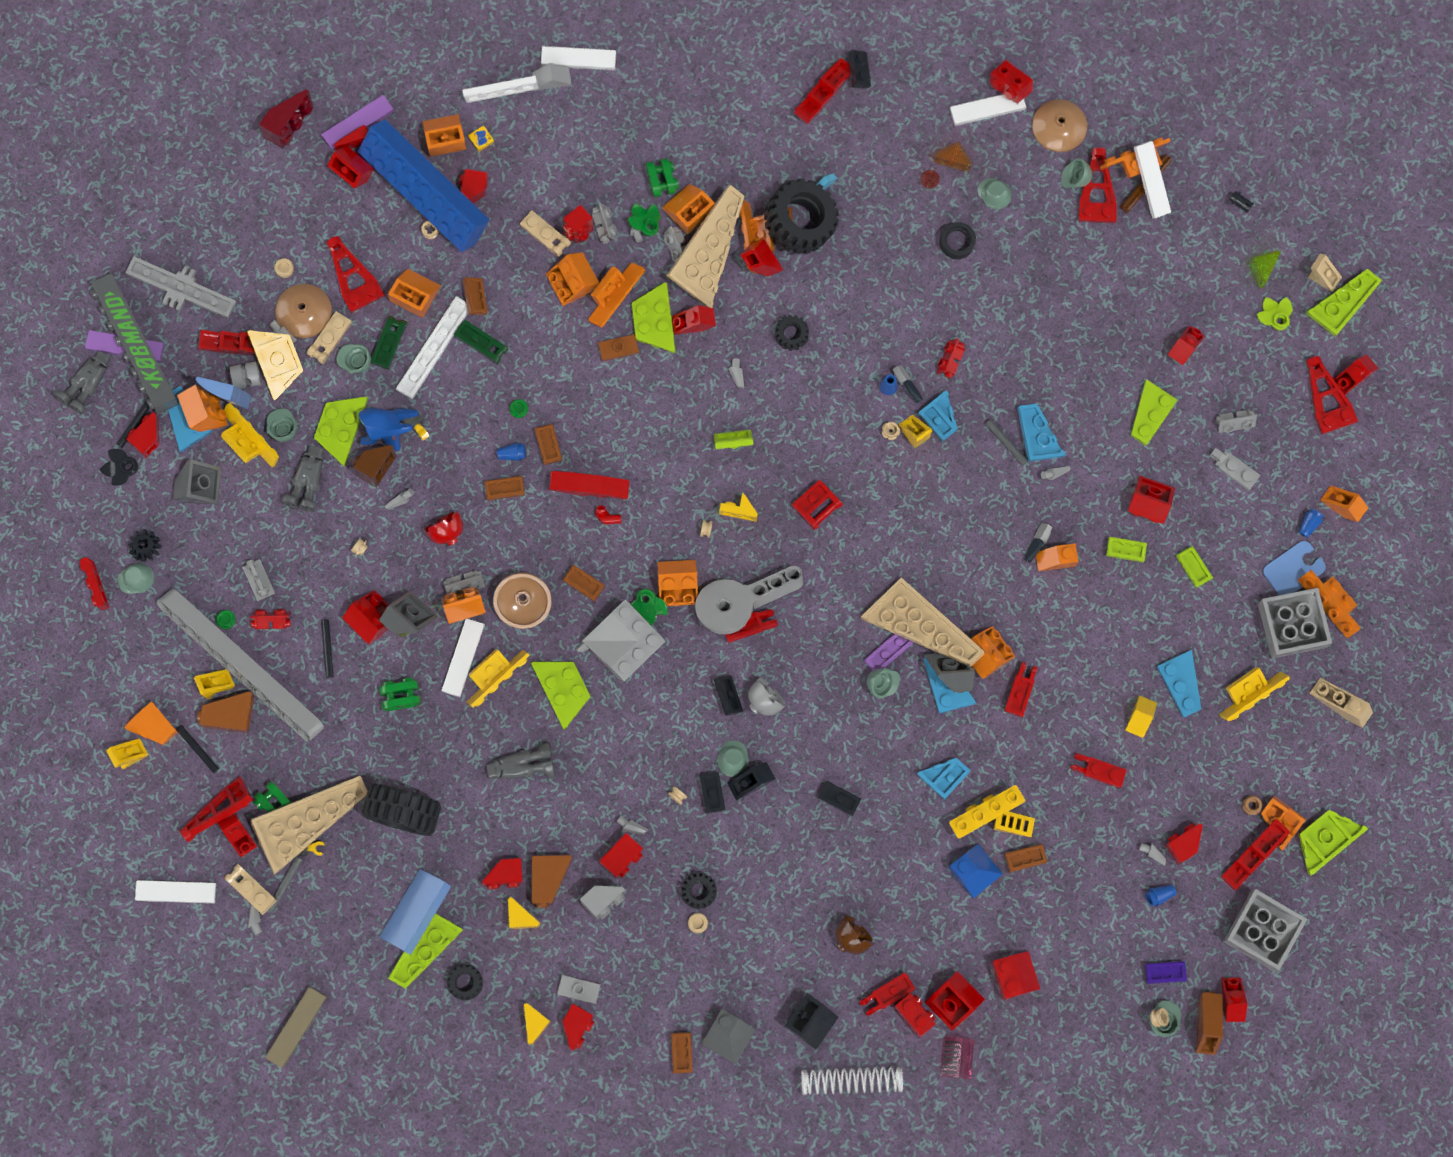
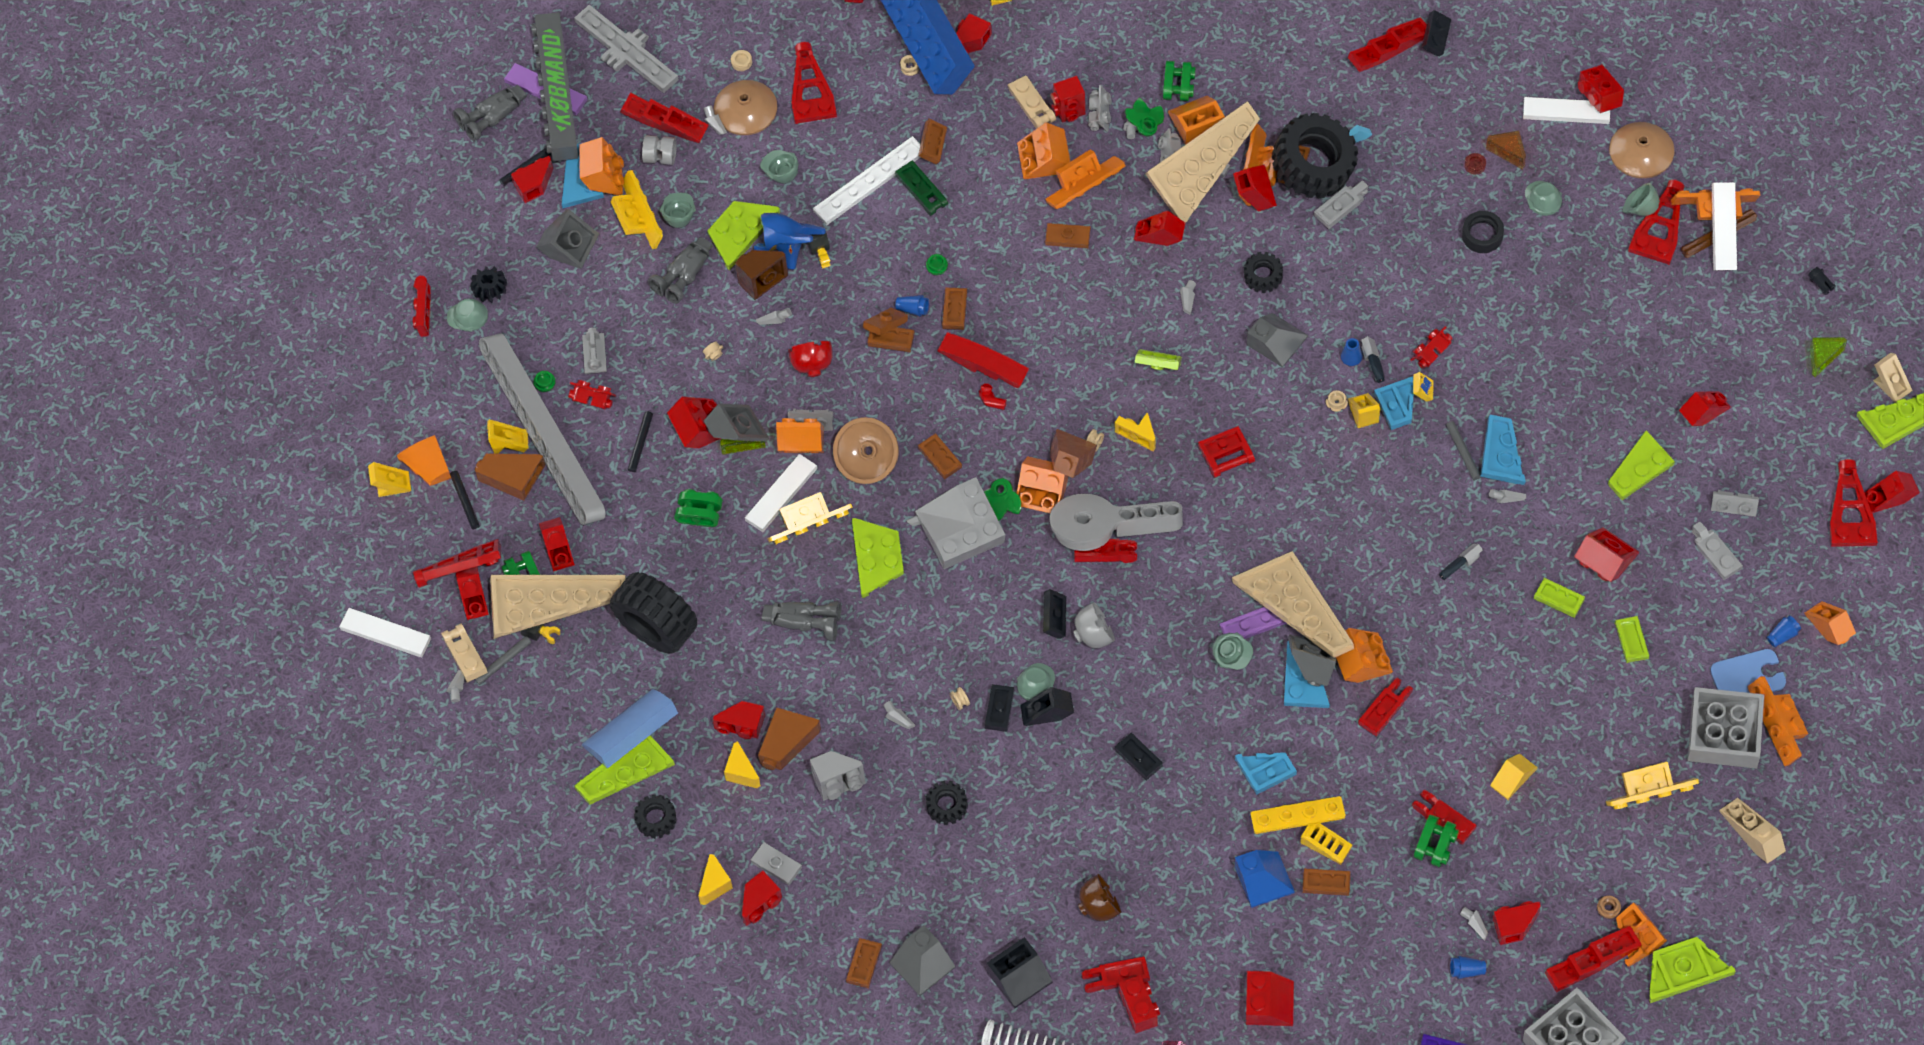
camera: 30 degrees right, 15 degrees down
(117, 467) = (490, 204): black plate -> none
(227, 392) = (632, 152): medium blue slope -> none
(277, 359) = (697, 143): yellow wing -> none
(291, 765) = (556, 544): none -> red slope
(296, 1027) = (458, 803): dark tan slope -> none
(329, 337) = (762, 140): tan plate -> none
(388, 343) = (822, 161): dark green plate -> none
(413, 292) = (867, 119): orange slope -> none
(495, 476) = (885, 321): none -> dark orange plate
(622, 856) = (874, 739): red brick -> none
(653, 319) = (1117, 218): lime wing -> none
(692, 550) = (1071, 454): none -> dark orange slope
(697, 923) = (933, 836): tan tile -> none
(822, 389) = (1275, 338): none -> dark grey slope
(834, 251) = (1341, 204): none -> light grey hinge
(955, 1000) = (1189, 1003): red slope -> none
(956, 396) = (1423, 386): none -> yellow tile
(1057, 557) = (1476, 582): orange slope -> none
(1110, 788) = (1447, 835): none -> green brick
(1182, 683) = (1573, 755): dark azure wing -> none
(1274, 311) = (1821, 403): lime plate -> none

